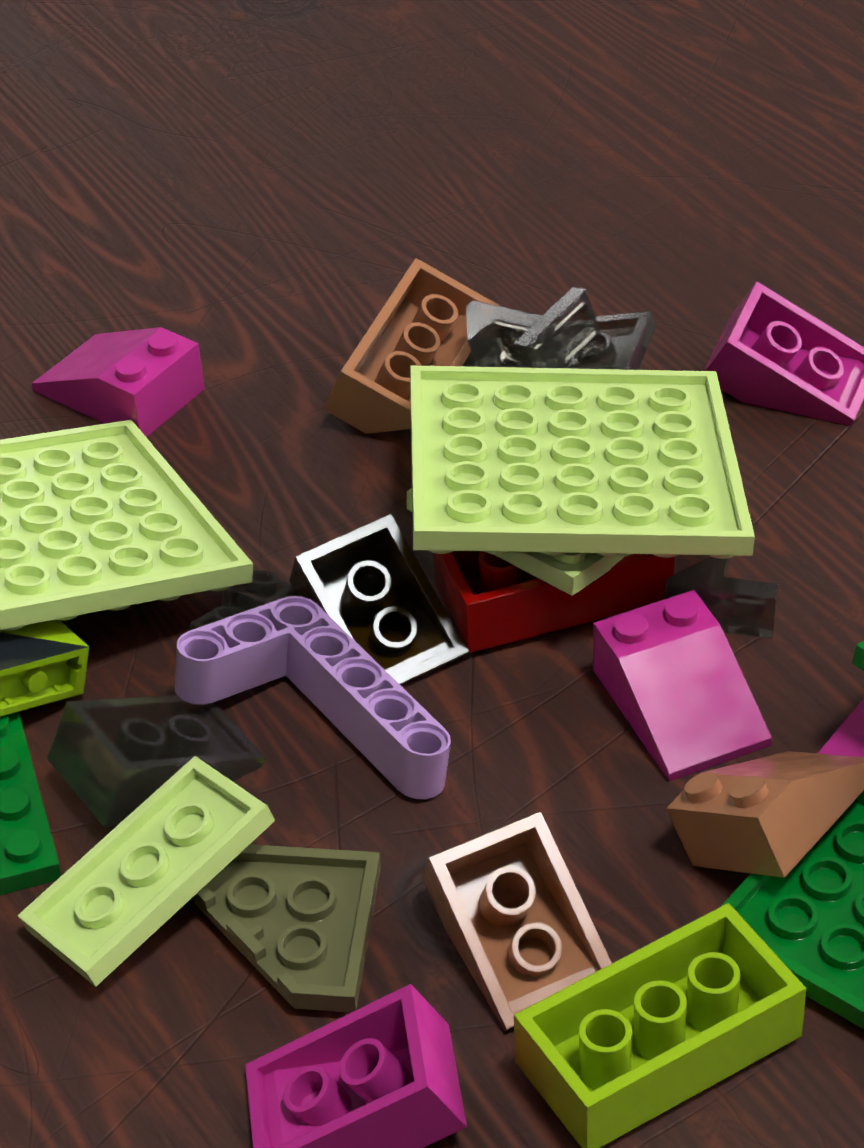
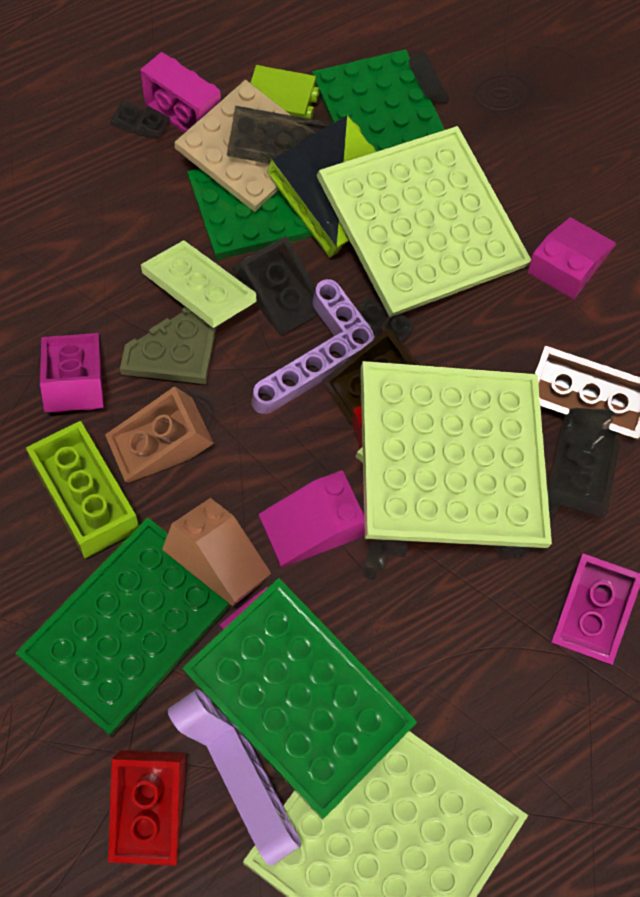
camera: 85 degrees right, 20 degrees up
(558, 332) = (577, 455): clear smoke tile -> none

